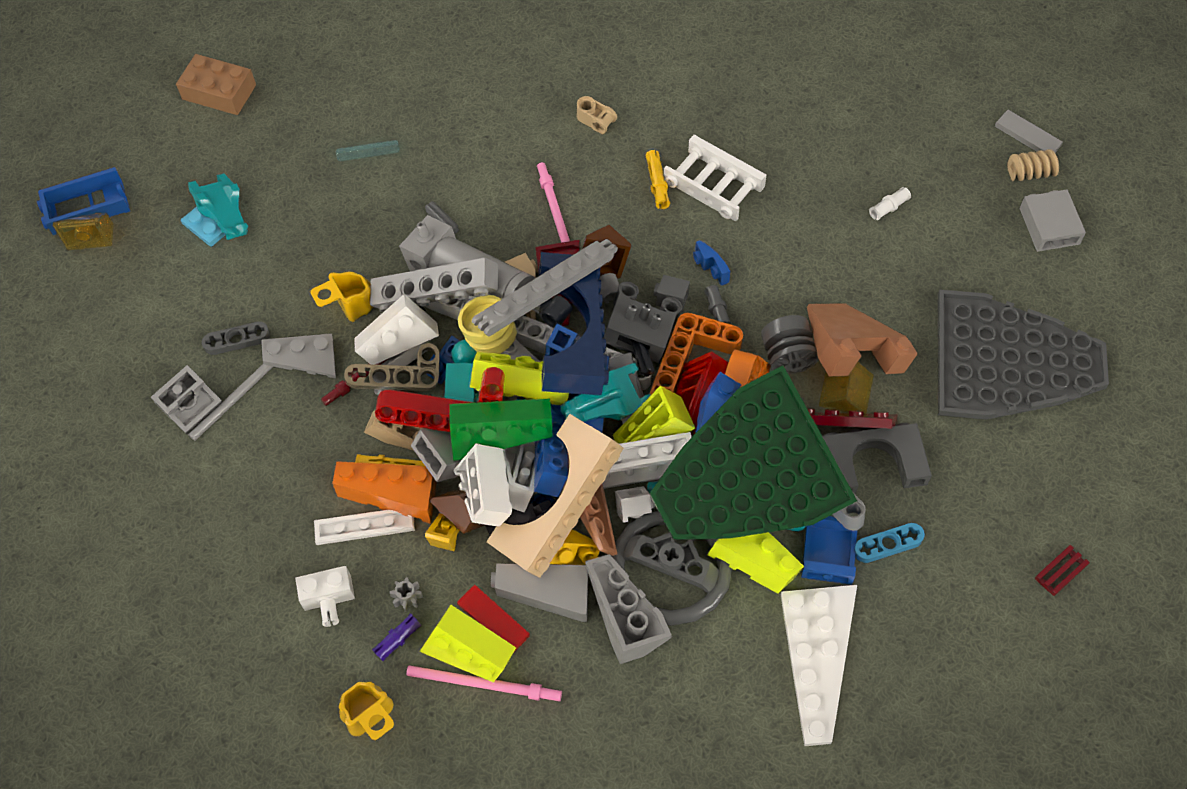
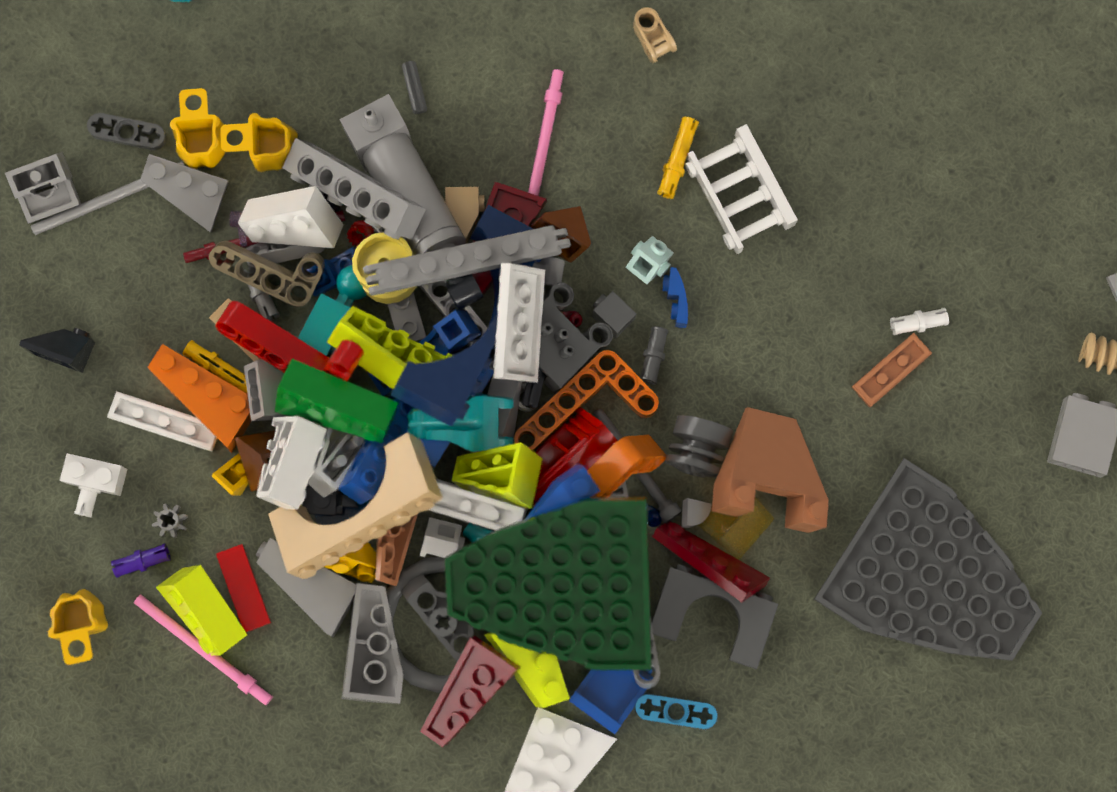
camera: 25 degrees right, 20 degrees up
(252, 507) = (62, 347): none -> black slope
(293, 309) = (197, 133): none -> yellow piece
(353, 358) = (234, 218): none -> hand
(452, 332) = (361, 226): none -> red bush
(611, 308) = (519, 323): none -> white plate
(675, 253) = (649, 259): none -> light aqua brick
(721, 592) = (470, 686): none -> wing
(813, 394) = (694, 512): none -> light grey tile
(891, 242) = (891, 370): none -> nougat tile

